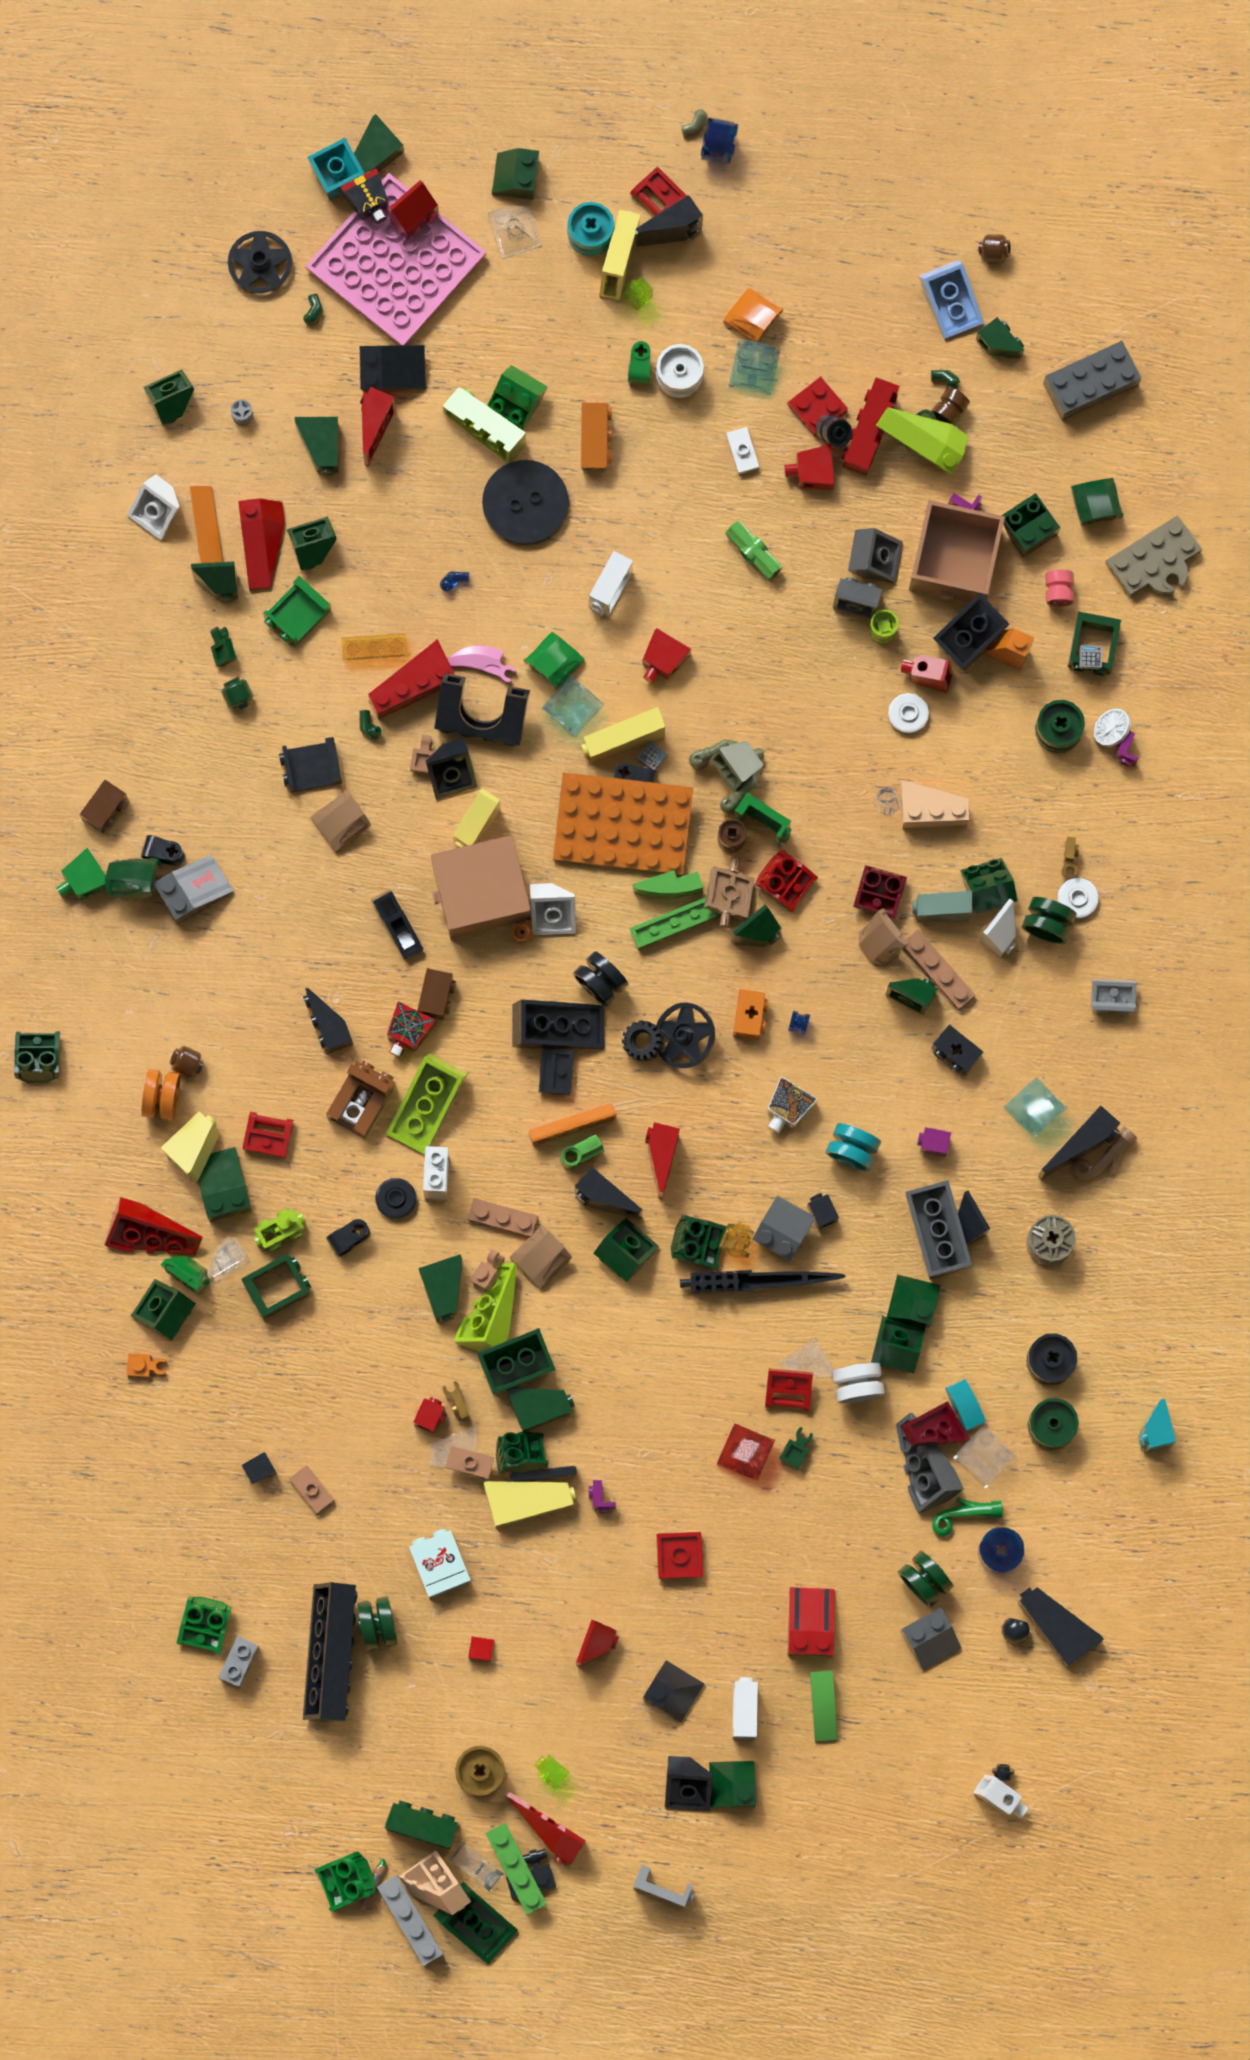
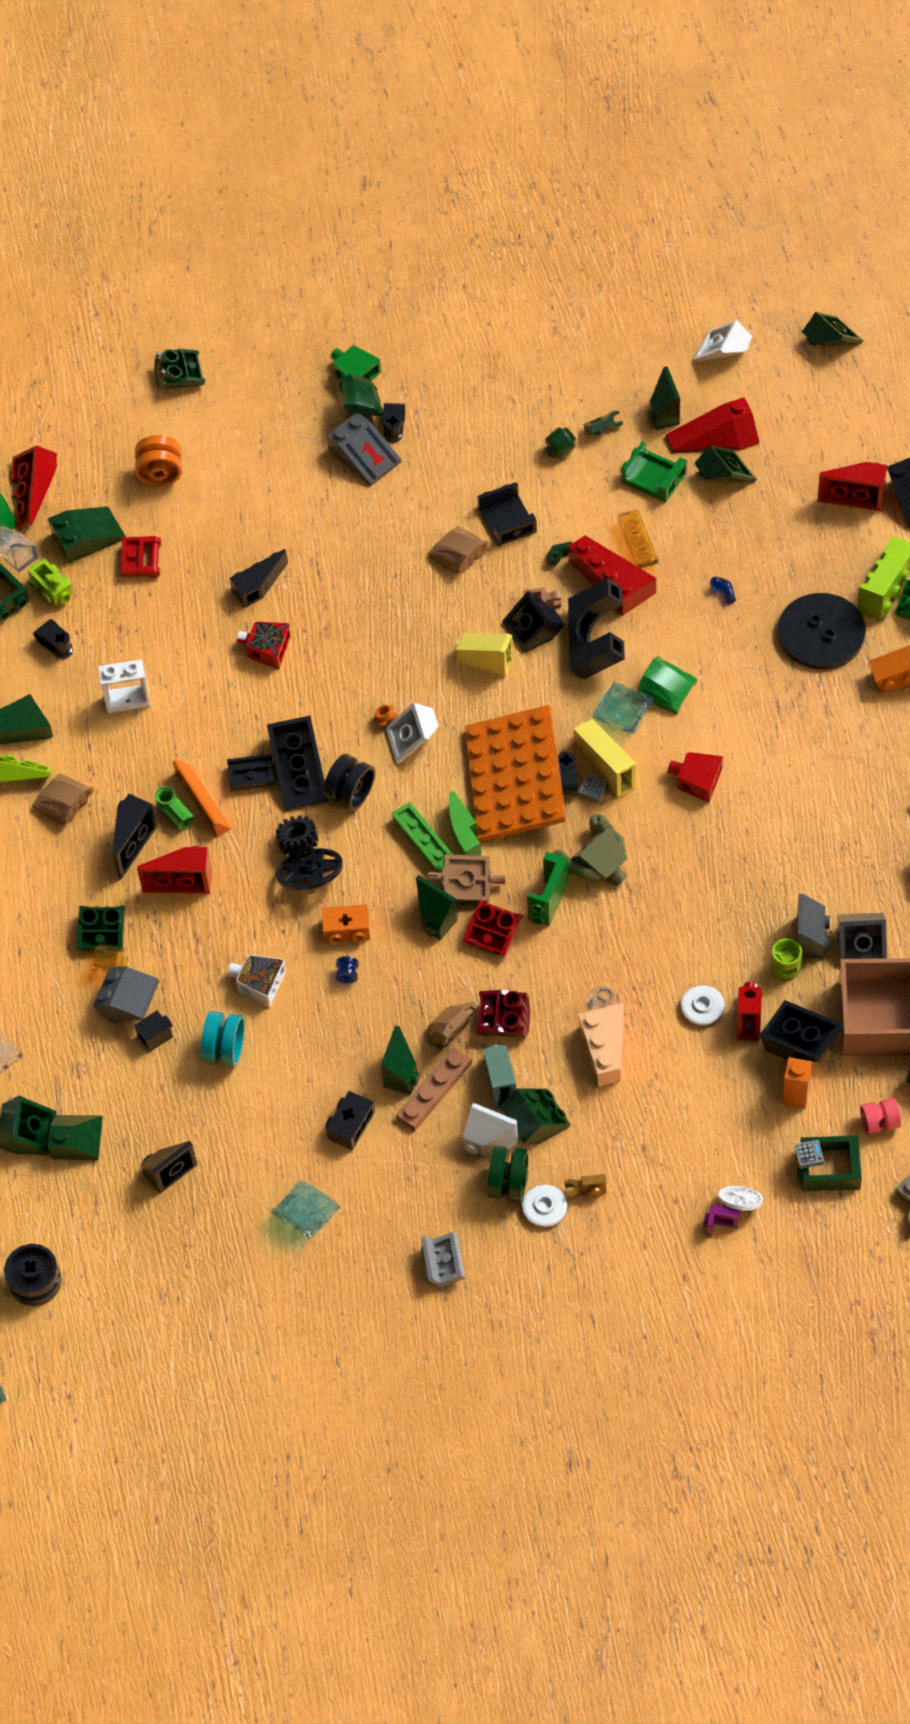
camera: 85 degrees right, 20 degrees down
(104, 806) = (424, 368): reddish brown brick -> none
(186, 1061) = (196, 478): reddish brown head -> none
(192, 1145) = (115, 497): light yellow slope -> none
(205, 524) = (716, 387): orange slope -> none
(241, 406) = (839, 386): light grey wheel -> none
(321, 441) = (825, 454): dark green slope -> none
(366, 1078) = (196, 619): dark orange brick -> none
(395, 1198) = (89, 667): black wheel -> none
(397, 924) = (368, 612): black slope -> none
(426, 1103) = (199, 672): lime slope -> none
(436, 993) = (305, 657): reddish brown brick -> none
(480, 887) = (418, 663): nougat container -> none
(483, 659) = (652, 629): bright pink piece -> none
(487, 1274) = (38, 756): nougat plate -> none
(502, 1217) = (97, 759): nougat plate -> none
(610, 584) = (752, 718): white window -> none
(625, 1249) = (83, 866): dark green slope -> none
(731, 835) = (526, 868): reddish brown wheel -> none
(747, 1281) = (68, 977): black piece -> none
(753, 550) = (833, 830): bright green piece -> none
(934, 1142) = (246, 1117): magenta brick -> none
(938, 1229) = (149, 1132): dark grey slope -> none
(1044, 1251) = (162, 1258): dark tan wheel -> none
(1067, 735) = (726, 1145): dark green wheel -> none
(1097, 1130) = (280, 1259): black slope -> none
(1110, 1157) = (288, 1302): medium nougat plant -> none

